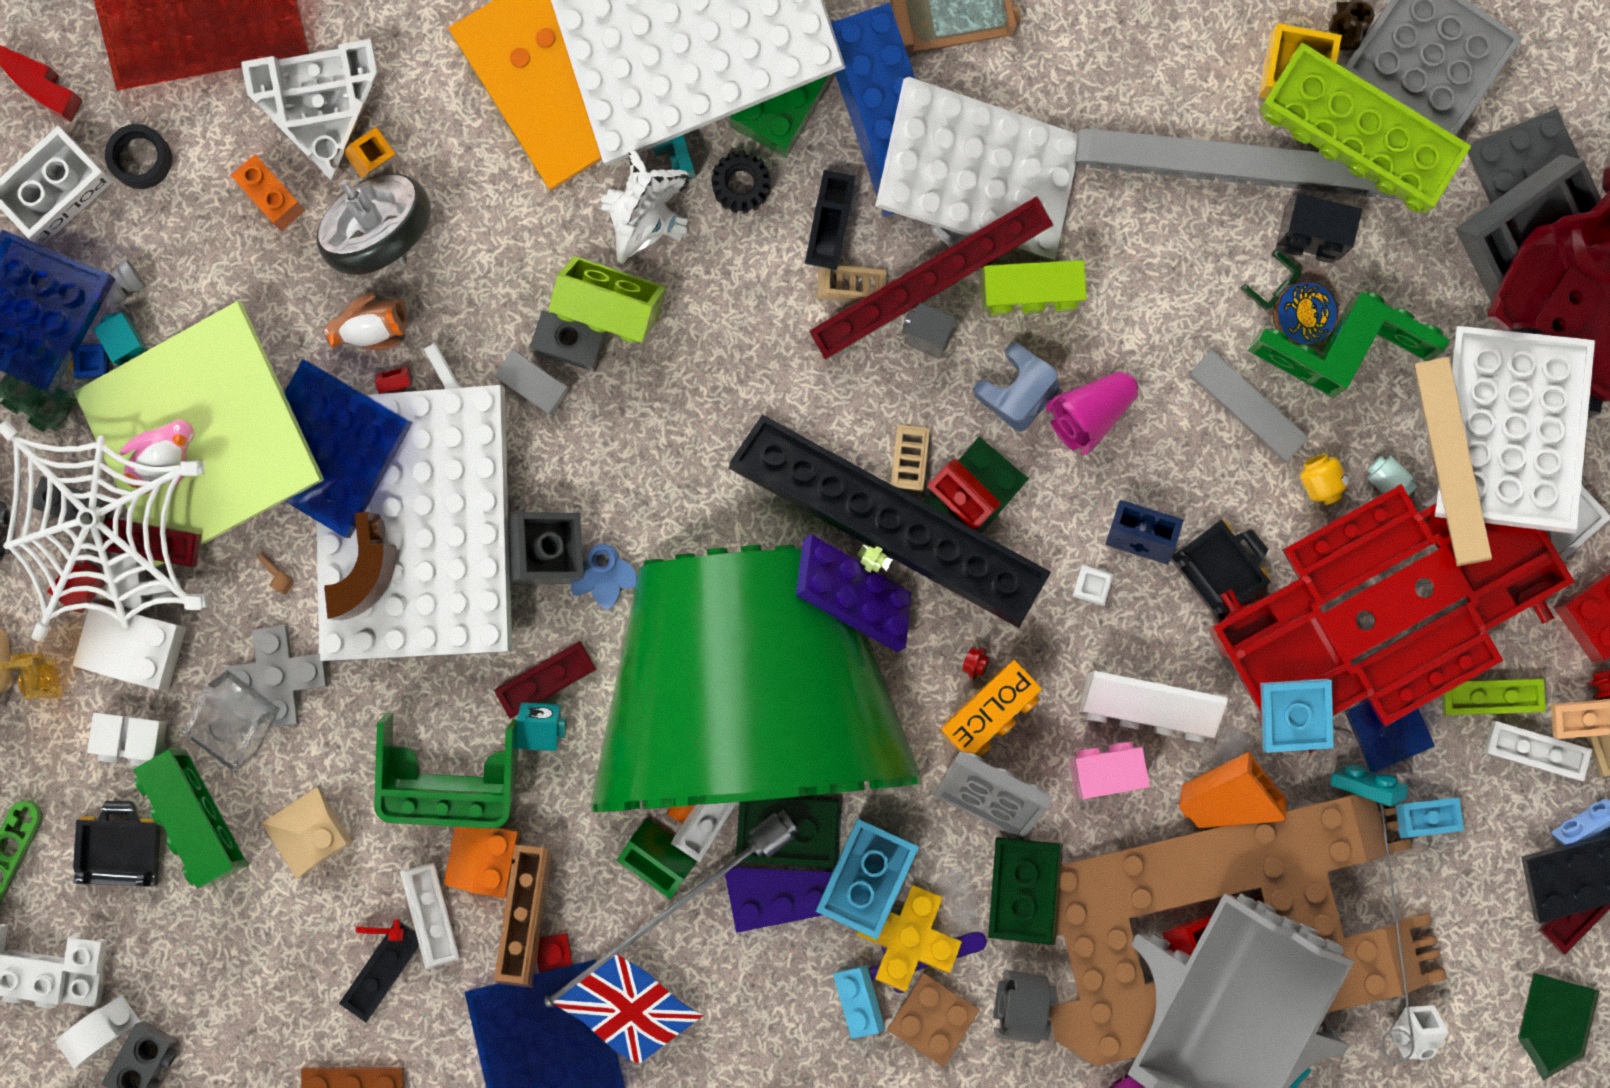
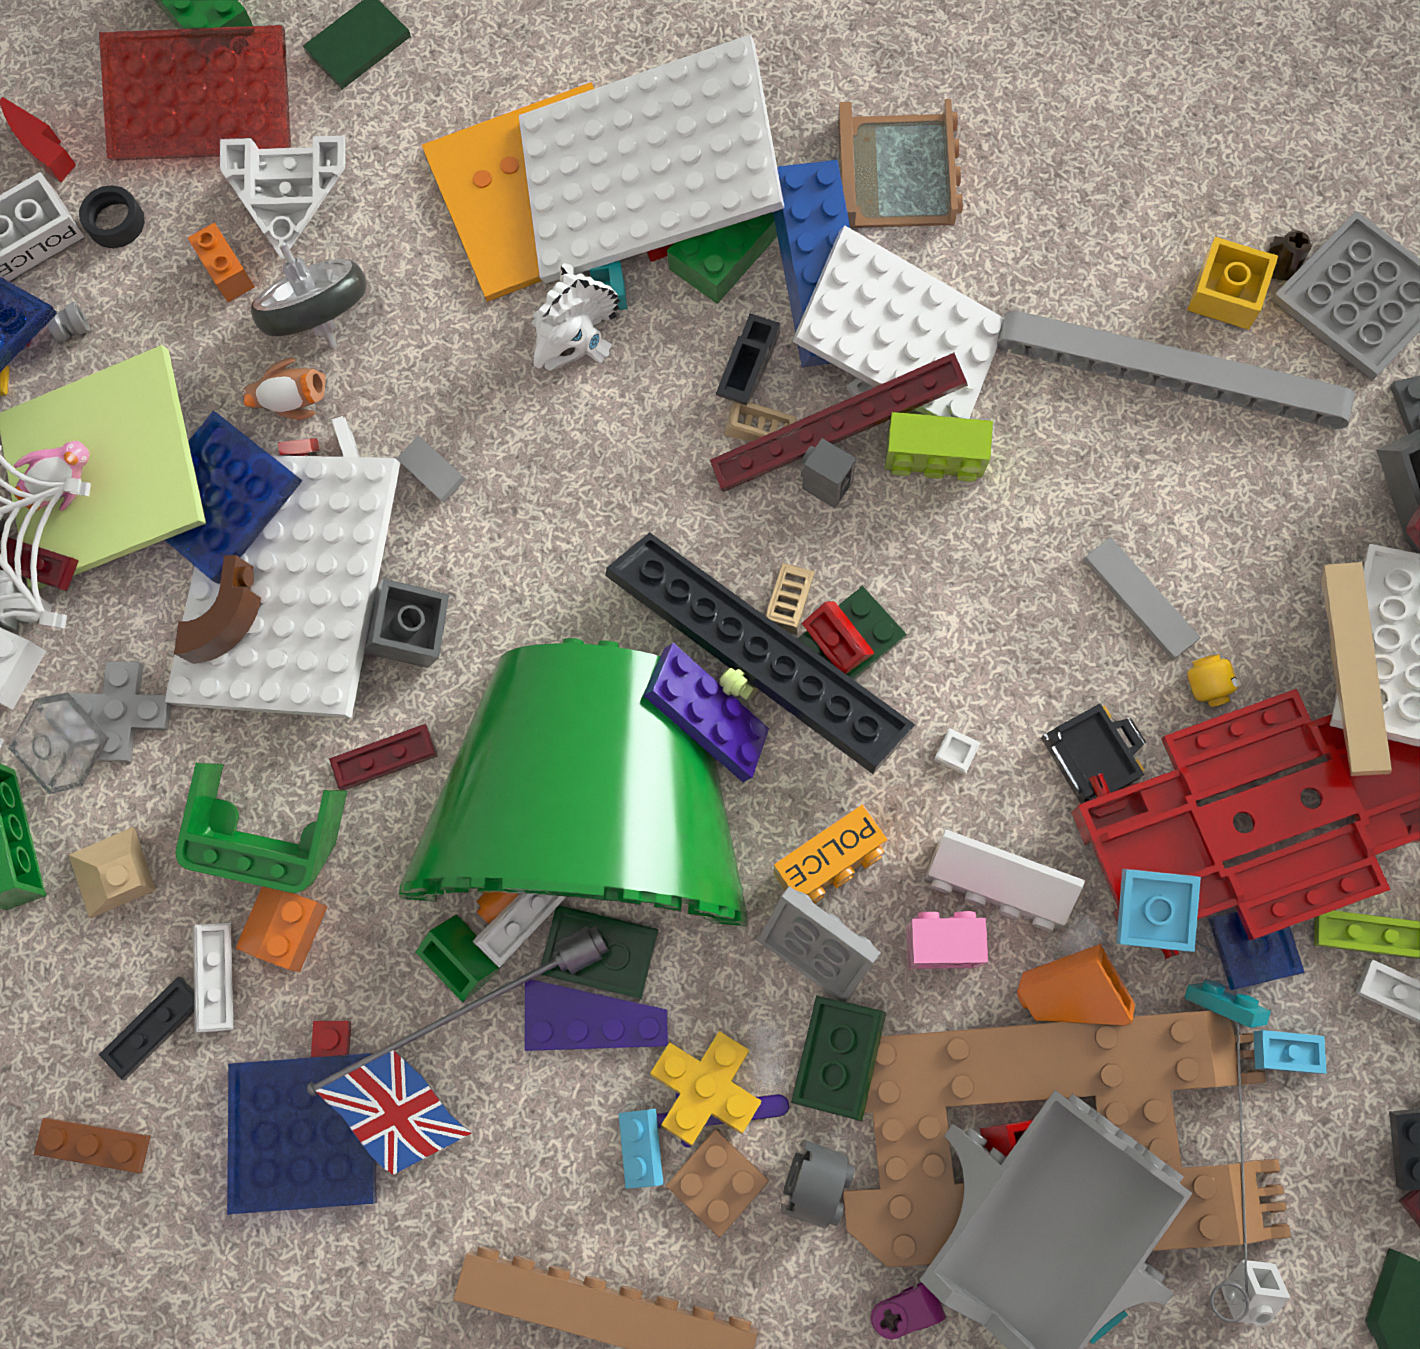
camera: 15 degrees right, 10 degrees down
(90, 362) = (20, 389): blue tile -> none
(120, 338) = (50, 369): teal brick -> none
(281, 581) = (147, 620): medium nougat hand -> none
(369, 152) = (322, 238): light orange brick -> none
(395, 933) = (170, 989): red piece -> none
(523, 916) = (303, 993): medium nougat brick -> none
(540, 726) = (365, 801): teal brick -> none
(583, 353) = (484, 449): dark grey brick -> none
(606, 299) = (516, 398): lime brick -> none
(607, 580) = (462, 669): medium blue plate -> none
(733, 164) = (663, 300): black tyre -> none
(867, 878) = (671, 1013): medium azure slope -> none
(975, 662) = (823, 809): red plate -> none
(1027, 396) = (916, 553): sand blue piece -> none
(1091, 410) = (979, 575): dark pink cone -> none
(1144, 532) = (1017, 702): dark blue brick -> none
(1289, 265) = (1190, 493): dark green piece -> none
(1305, 313) = (1211, 516): tile -> none
(1318, 228) = (1235, 432): black brick -> none
(1349, 343) = (1275, 525): green bracket -> none
(1364, 129) = (1292, 343): lime bracket -> none
(1388, 474) = (1279, 682): light aqua brick -> none

